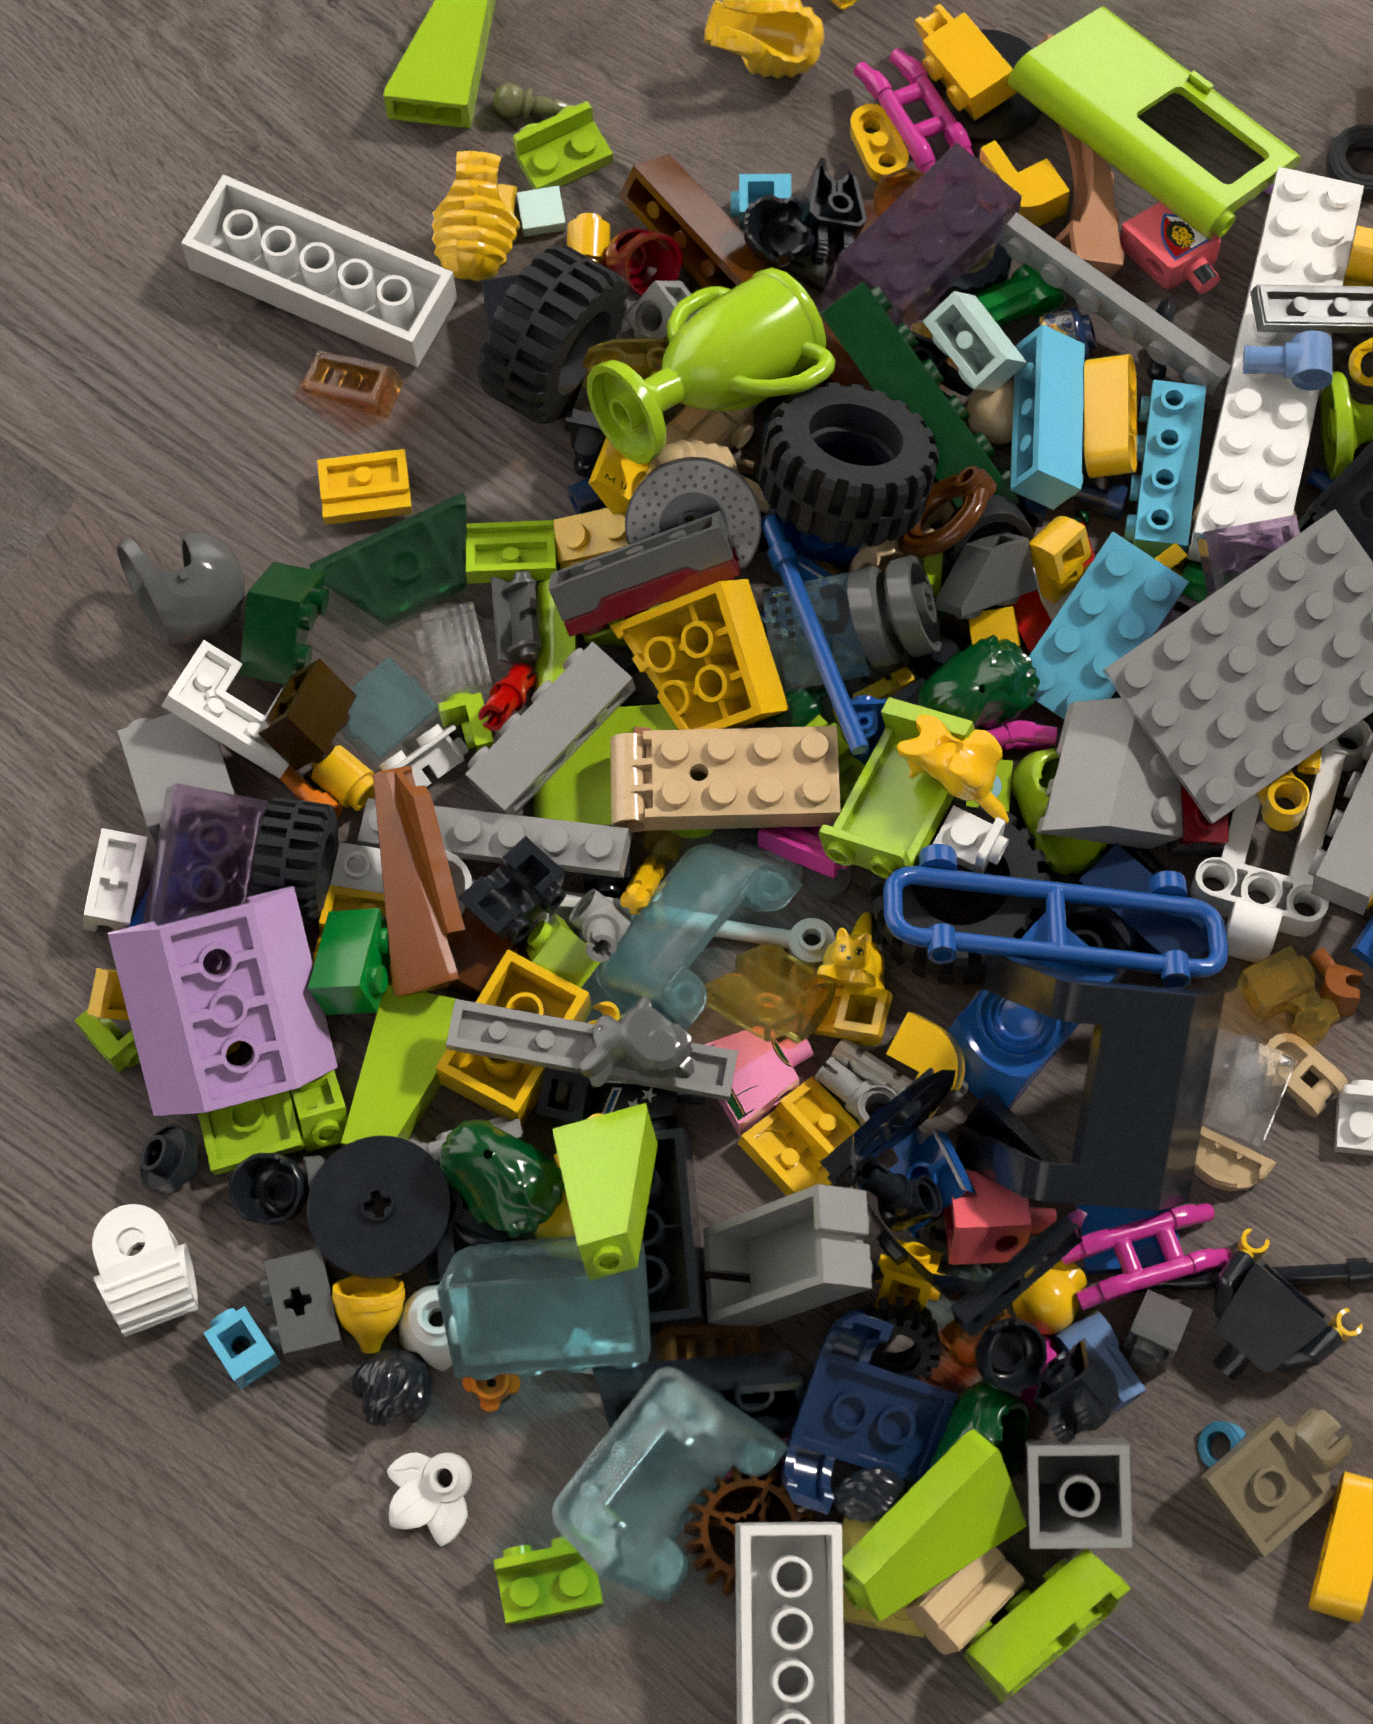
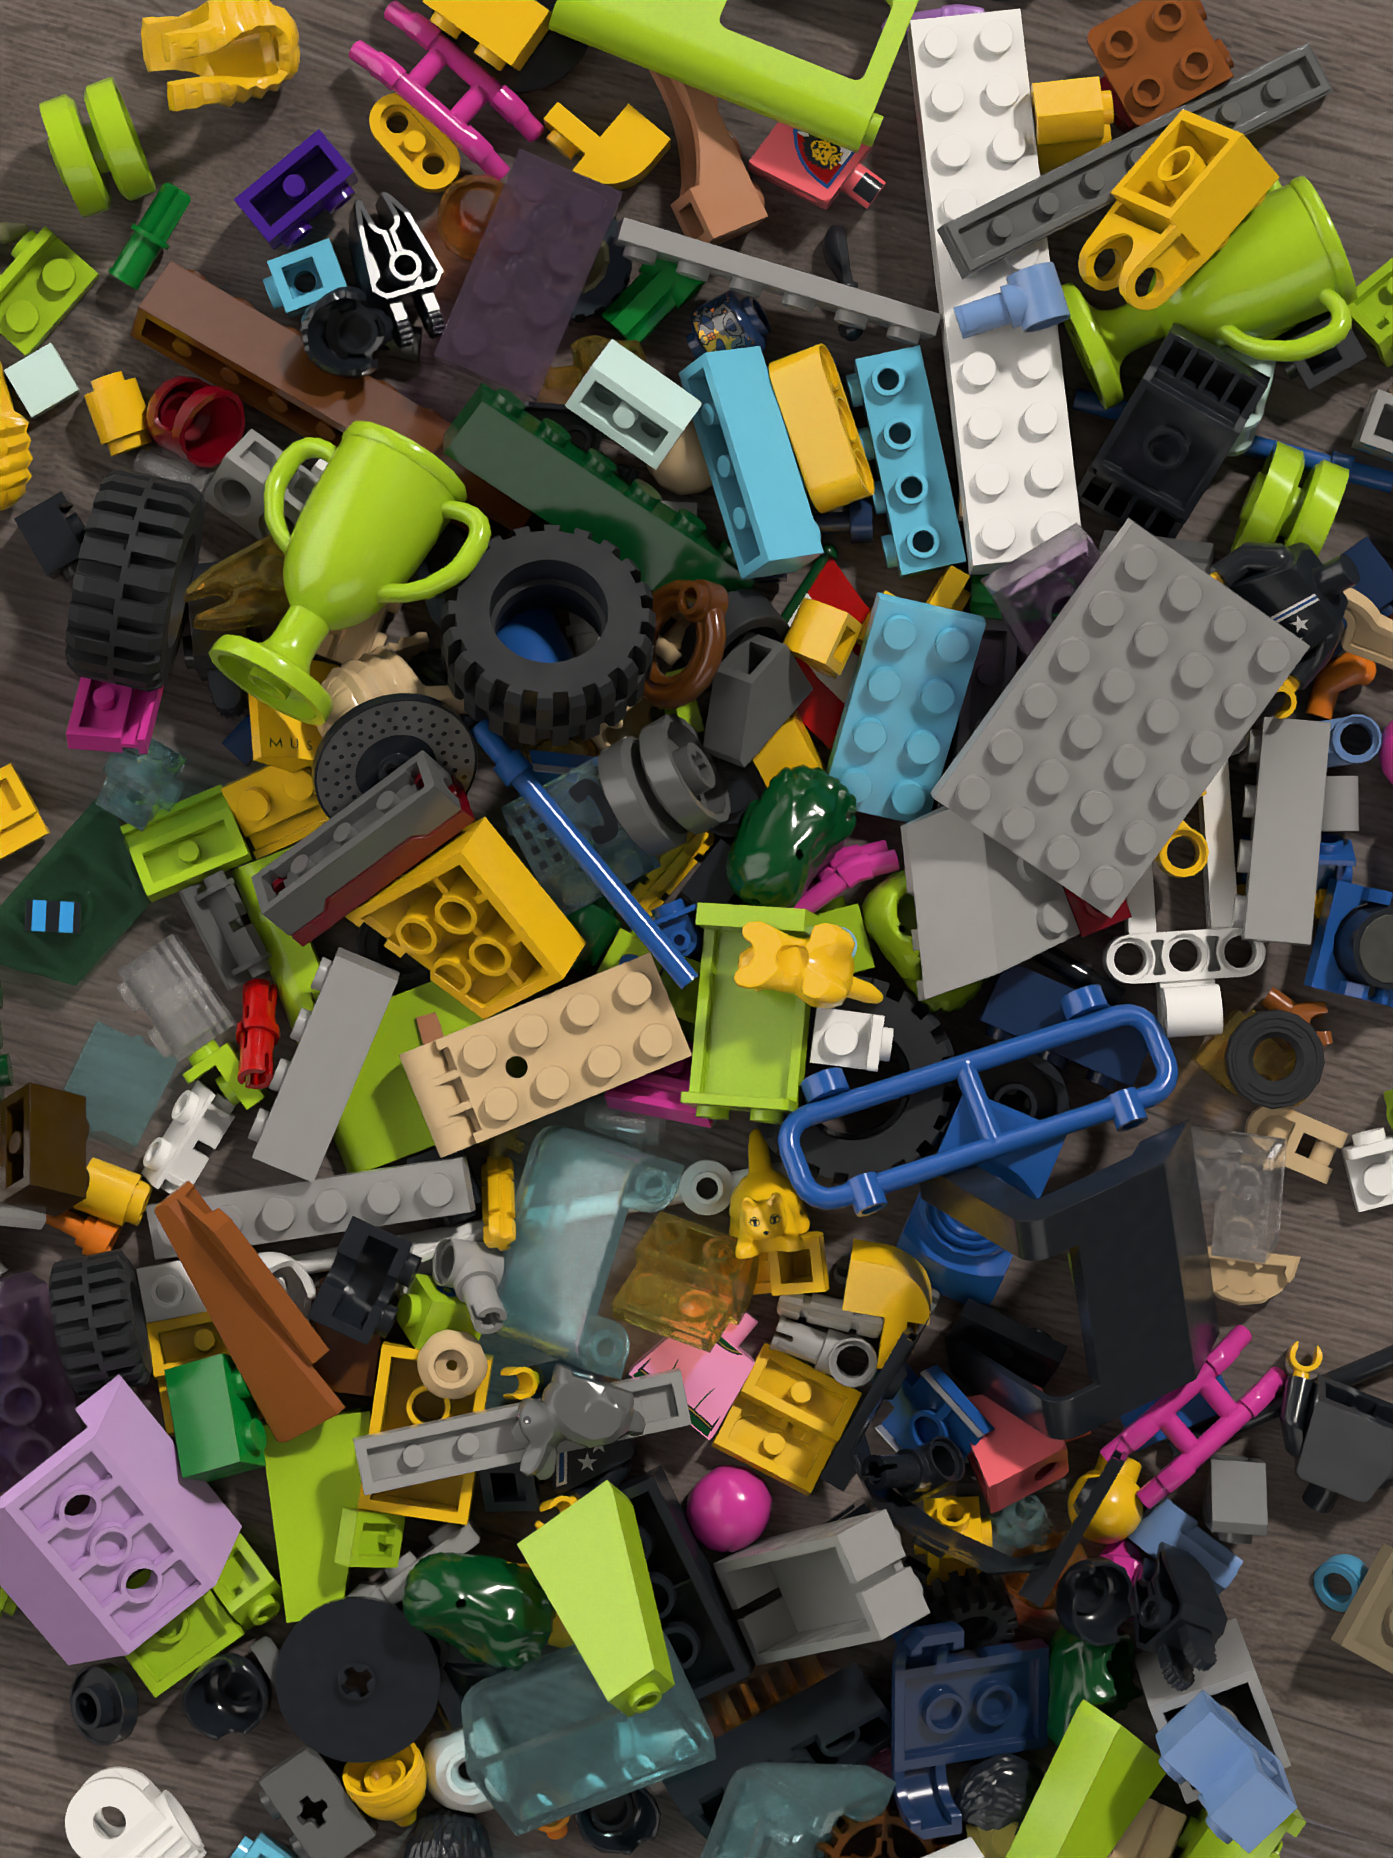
camera: 25 degrees left, 20 degrees up
(388, 564) = (52, 916): none -> sticker
(435, 1097) = (369, 1539): none -> lime bracket
(497, 490) = (142, 783): none -> clear light blue brick
(500, 431) = (112, 717): none -> dark pink plate
(545, 1404) = (620, 1822): none -> black hair
(557, 994) = (455, 1346): none -> tan plate
(647, 61) = (95, 148): none -> lime wheel
(662, 139) = (150, 235): none -> green axle
(730, 1190) = (729, 1508): none -> dark pink hair
(781, 138) = (297, 191): none -> dark purple brick
(1076, 1512) = (1231, 1769): none -> medium blue brick
(1314, 960) = (1308, 1055): none -> black tyre

